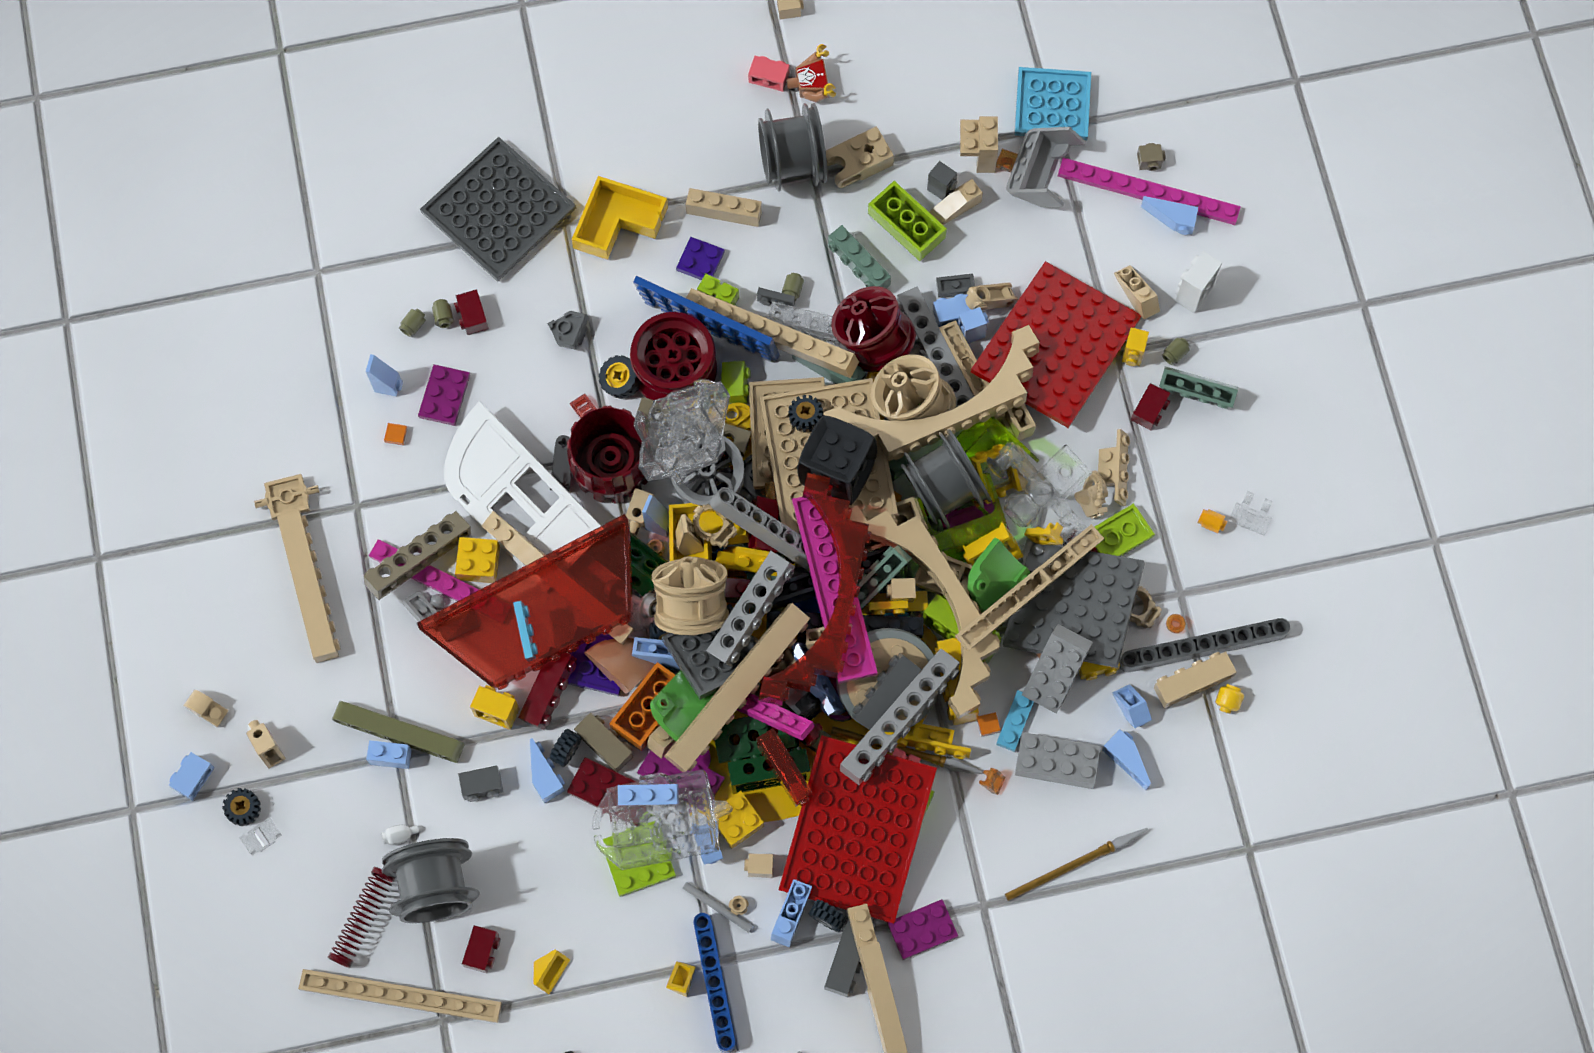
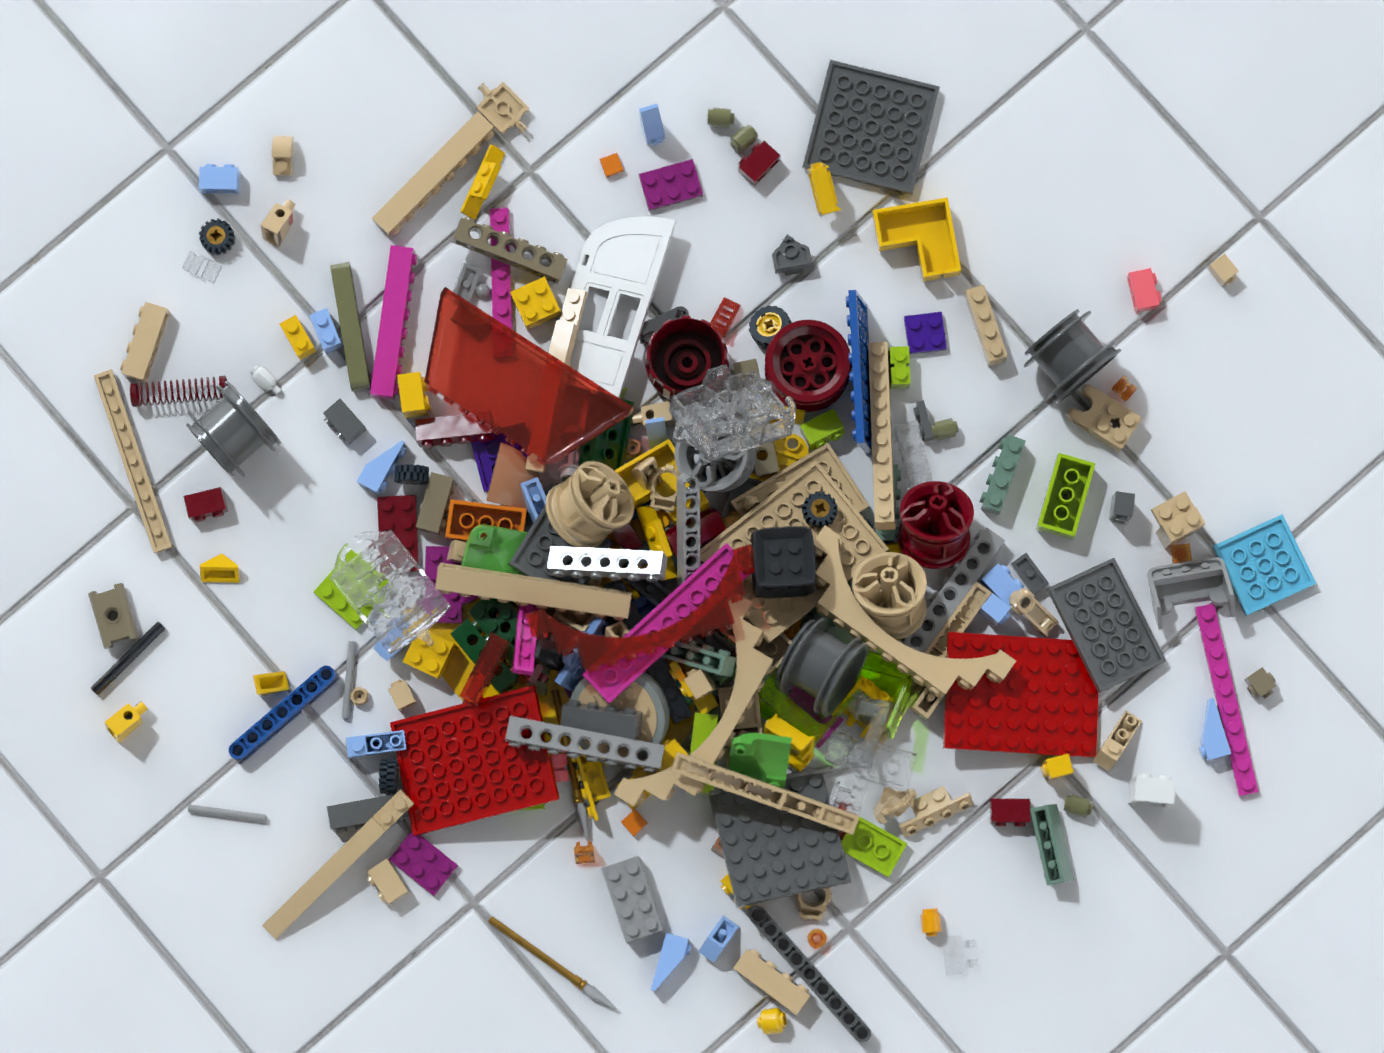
camera: 65 degrees right, 10 degrees up
(297, 924) = (145, 342): none -> tan brick
(342, 545) = (483, 182): none -> yellow bracket
(379, 783) = (297, 337): none -> yellow brick
(417, 692) = (392, 322): none -> dark pink brick
(526, 630) = (488, 382): medium azure plate -> none
(527, 269) = (822, 188): none -> yellow window
(648, 794) = (400, 569): light blue plate -> none
(812, 77) = (1160, 332): torso -> none
(842, 130) = (1121, 385): none -> clear orange wheel
(923, 970) = (387, 881): none -> tan brick
(957, 202) = (1108, 530): tan slope -> none
(1015, 722) = (650, 844): medium azure plate -> none
(1035, 247) = (1106, 625): none -> dark grey plate
(1046, 536) = (831, 784): yellow plate -> none
(1057, 668) = (708, 856): light grey brick -> none

